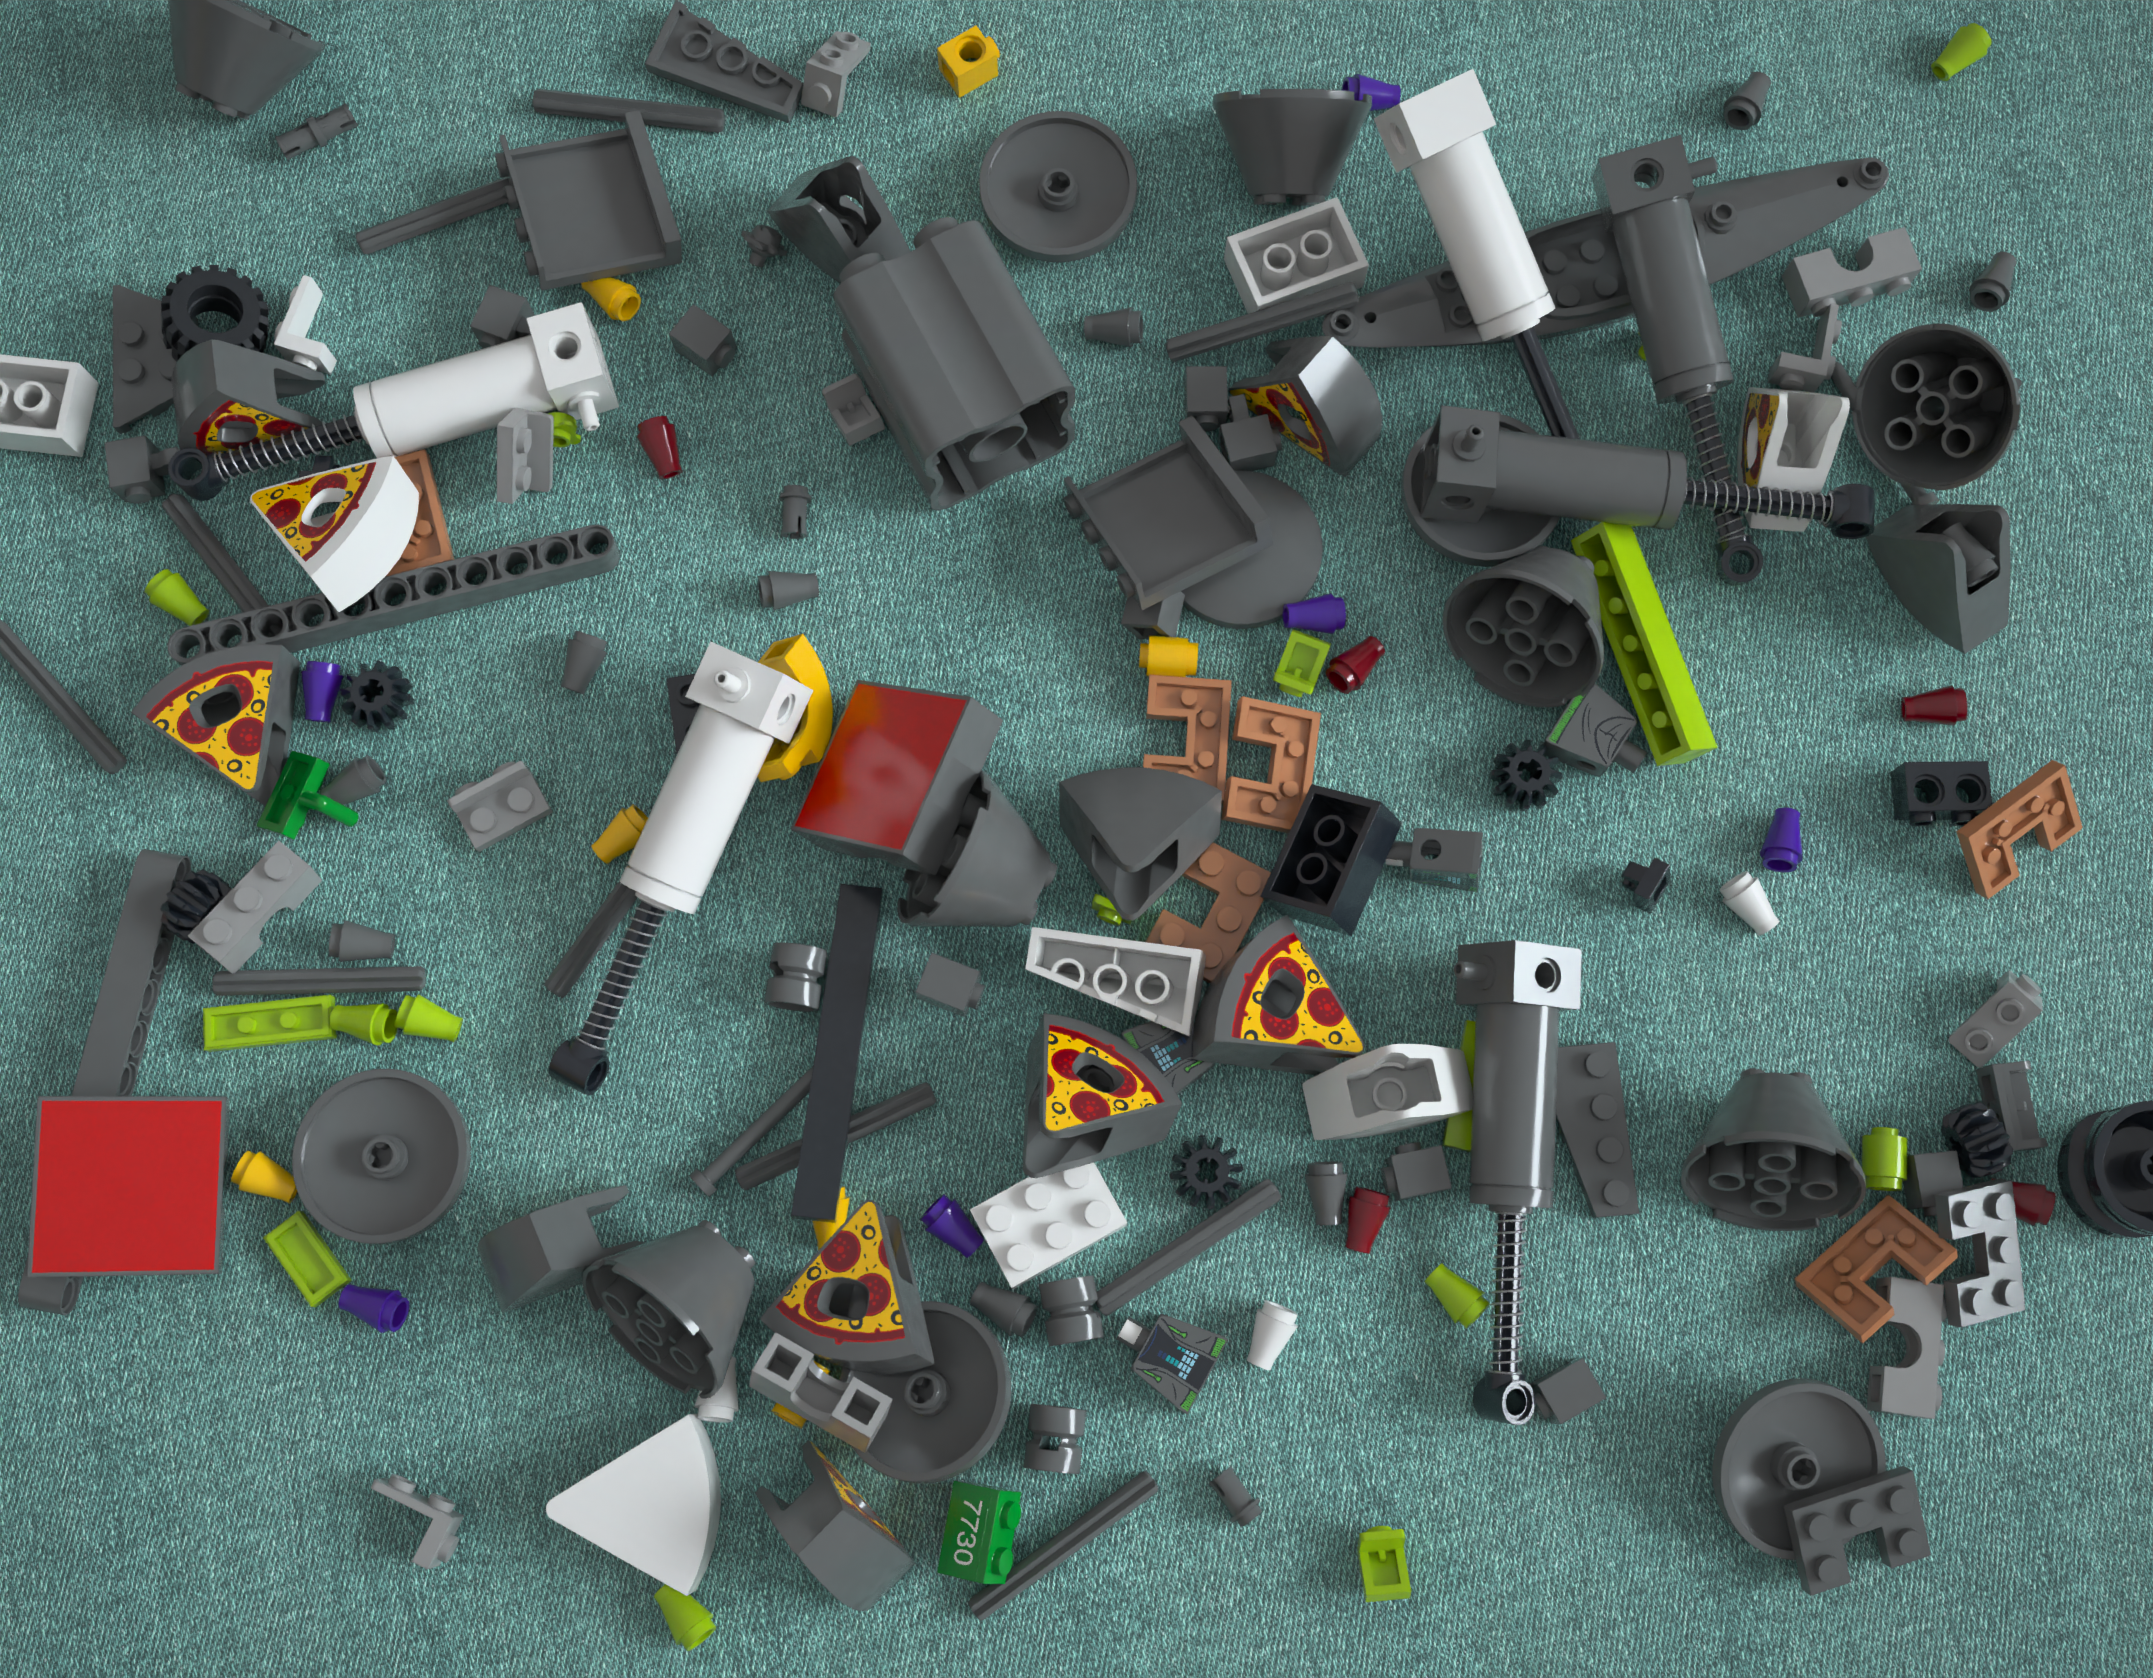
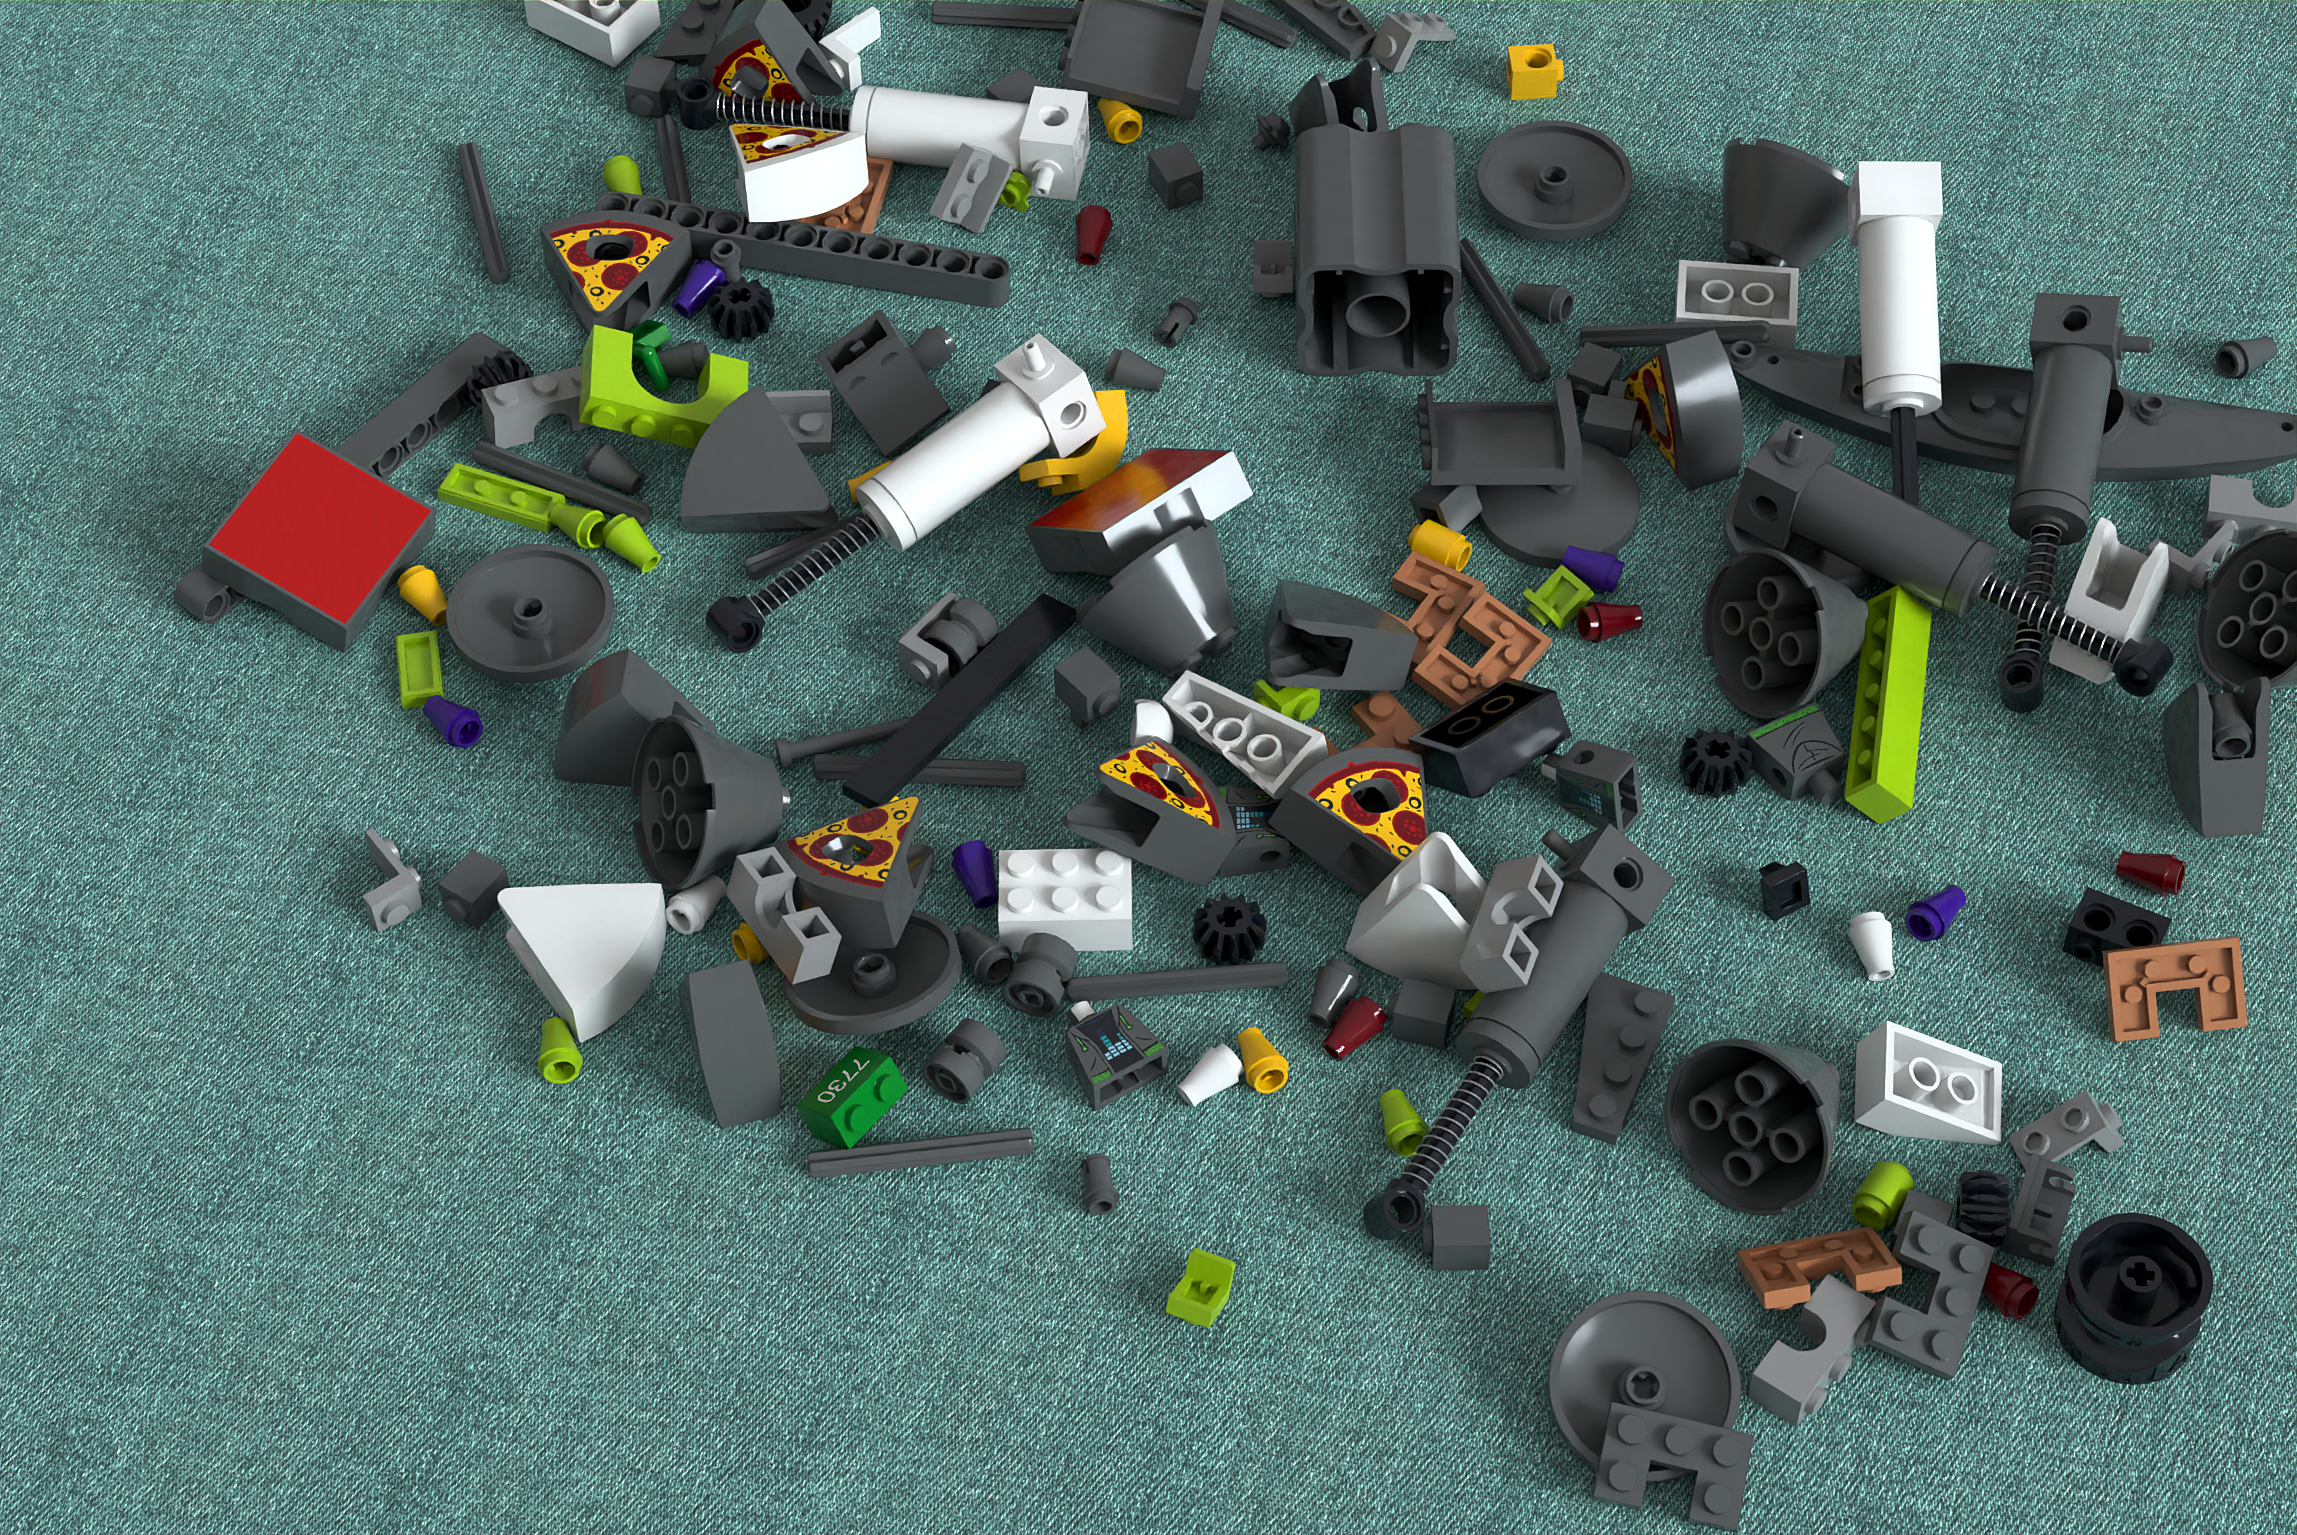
camera: 30 degrees right, 25 degrees down
(327, 888) = (617, 401): none -> lime arch
(332, 649) = (727, 256): none -> dark grey pin
(506, 1486) = (472, 889): none -> dark grey brick
(509, 899) = (751, 475): none -> dark grey piece
(568, 726) = (884, 383): none -> dark grey slope
(777, 1021) = (920, 658): none -> light grey bracket
(1025, 998) = (1149, 721): none -> white hair
(1095, 365) = (1503, 312): none -> dark grey axle
(1306, 1295) = (1263, 1064): none -> yellow cone
(1463, 1050) = (1497, 949): none -> light grey arch
(1866, 1033) = (1926, 1088): none -> white slope

